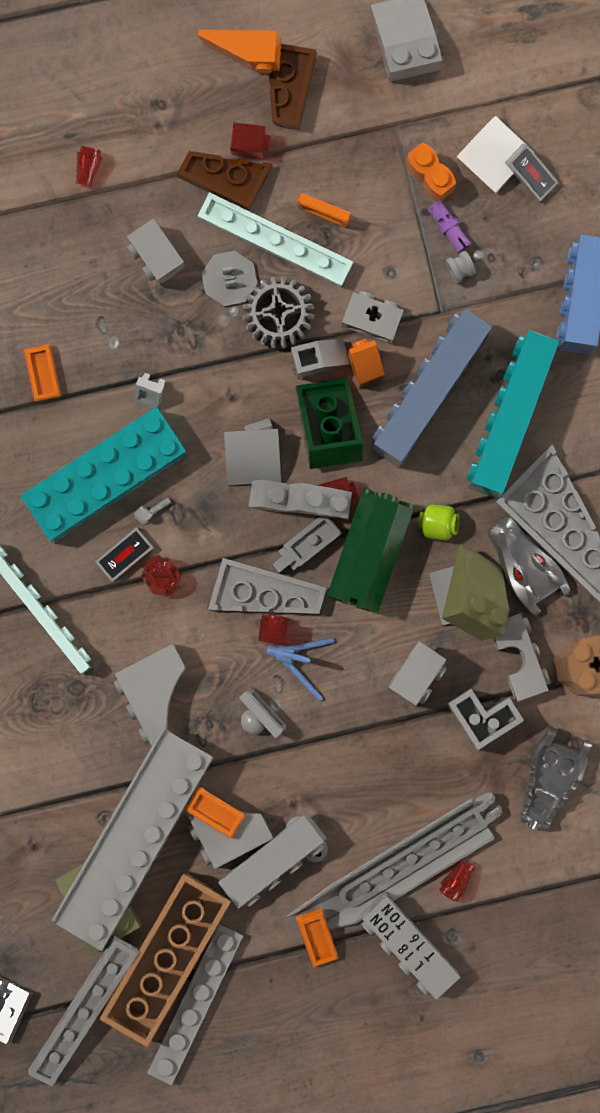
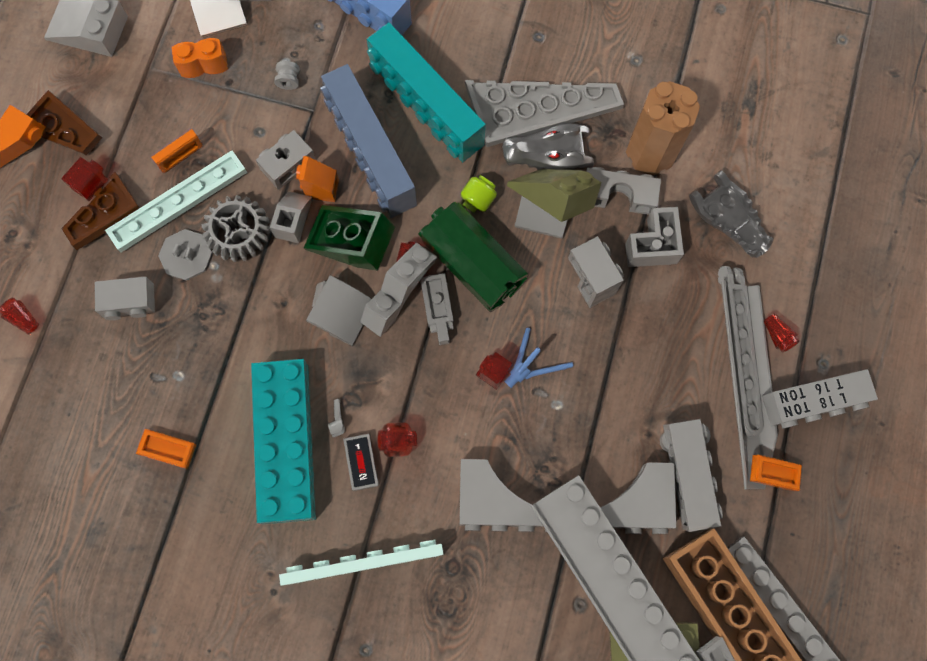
camera: 65 degrees left, 10 degrees down
(148, 392) = (235, 367): light grey tile -> none
(214, 812) = (627, 500): orange tile -> none
(258, 590) = (456, 362): light grey wing -> none
(259, 715) = (561, 421): light grey tile -> none
(449, 226) = (250, 68): medium lavender pin -> none

